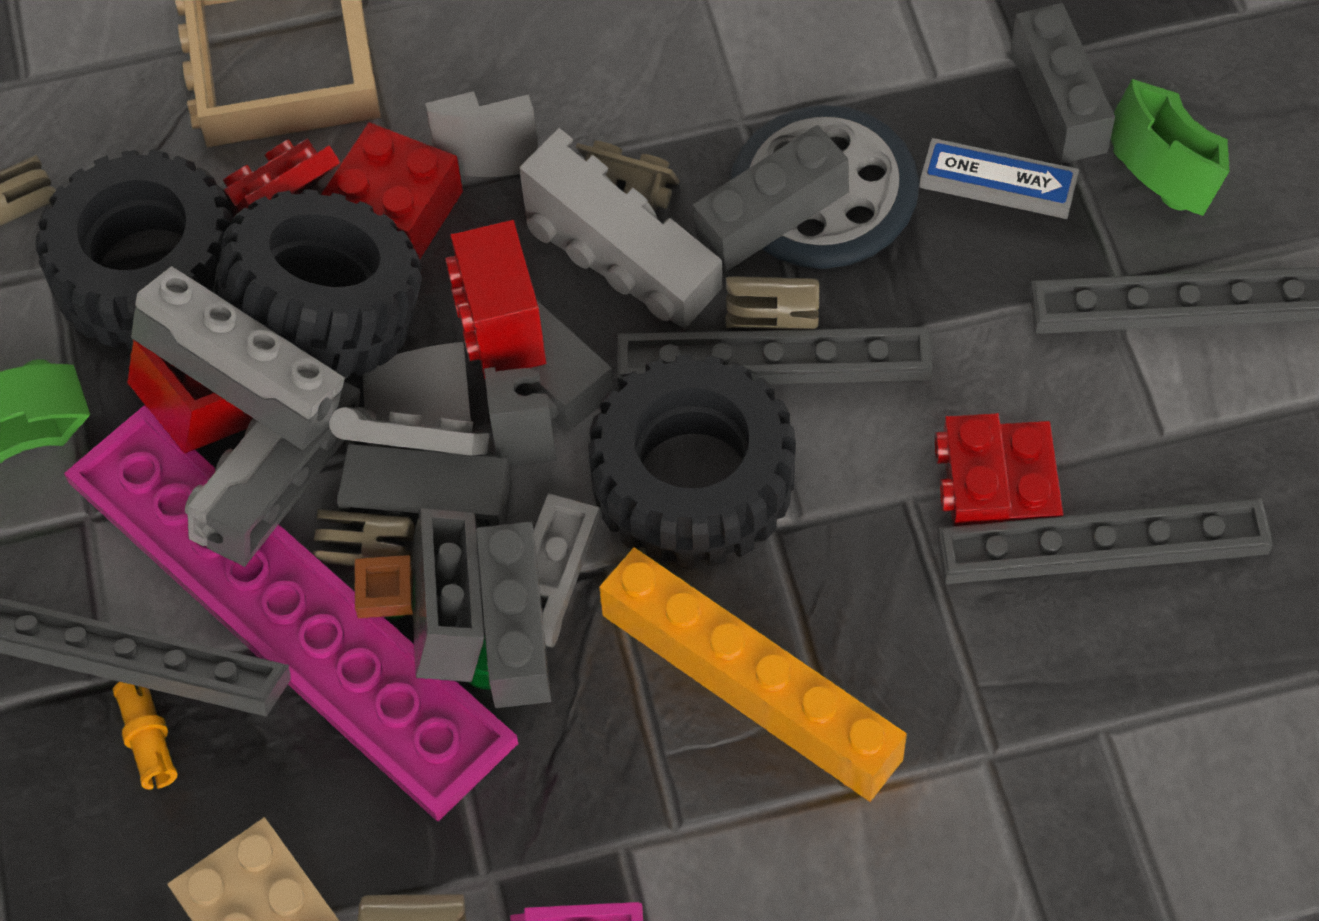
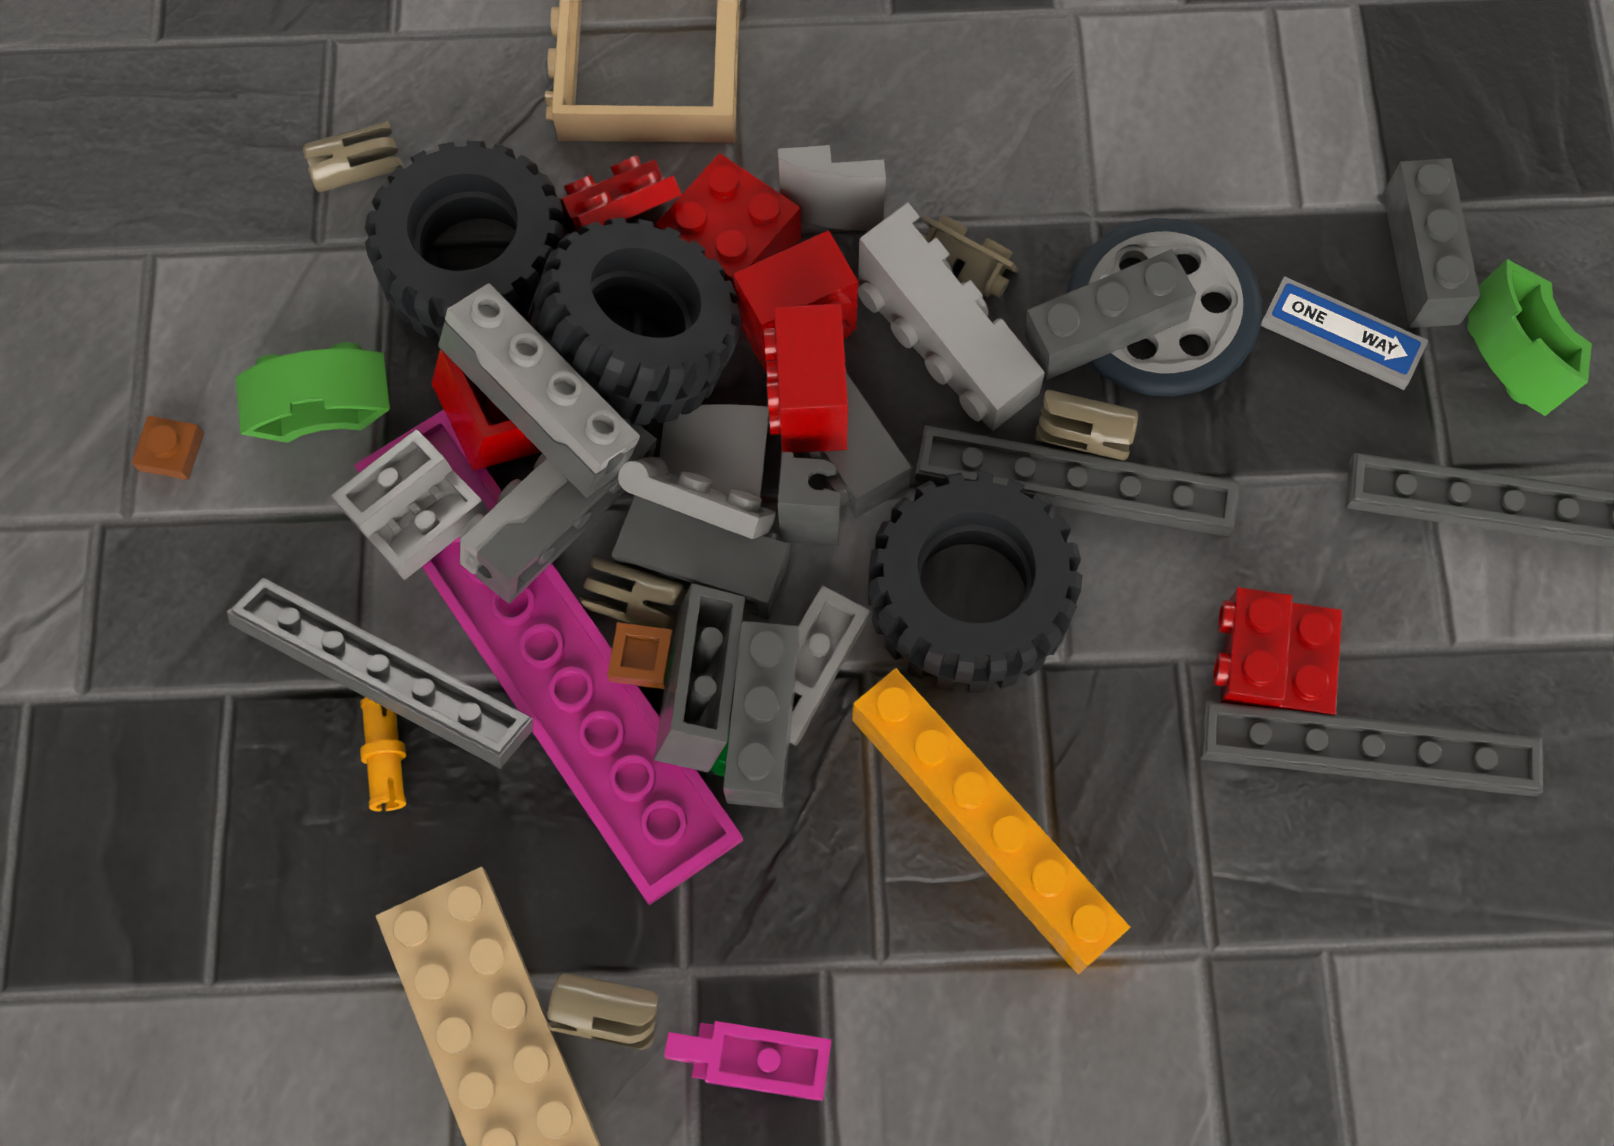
camera: 10 degrees right, 10 degrees up
(126, 495) = (409, 504): none -> light grey slope
(471, 205) = (798, 276): none -> red brick

